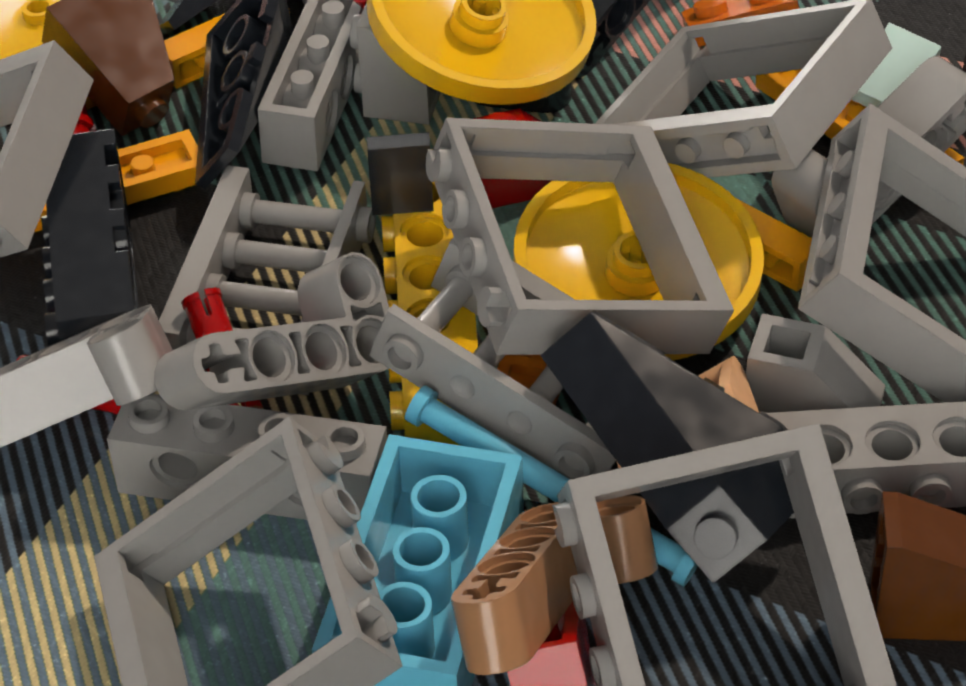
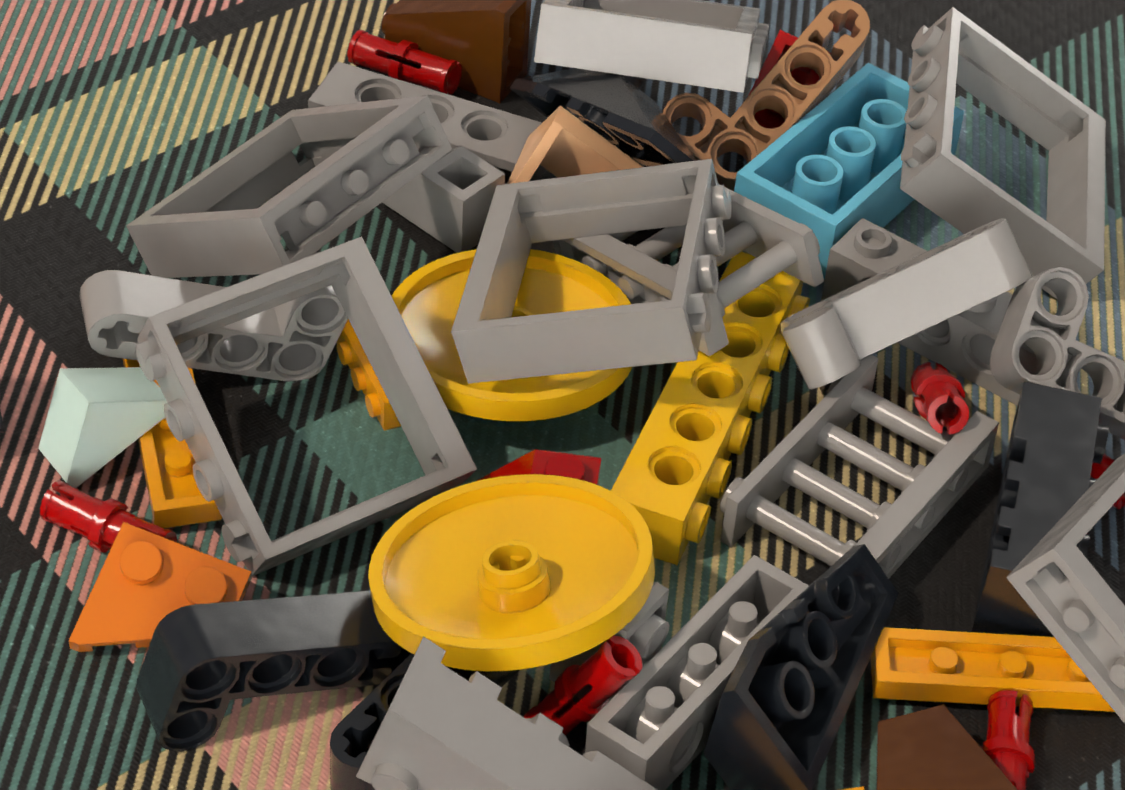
camera: 160 degrees left, 0 degrees up
(399, 173) = (699, 446): black slope -> none

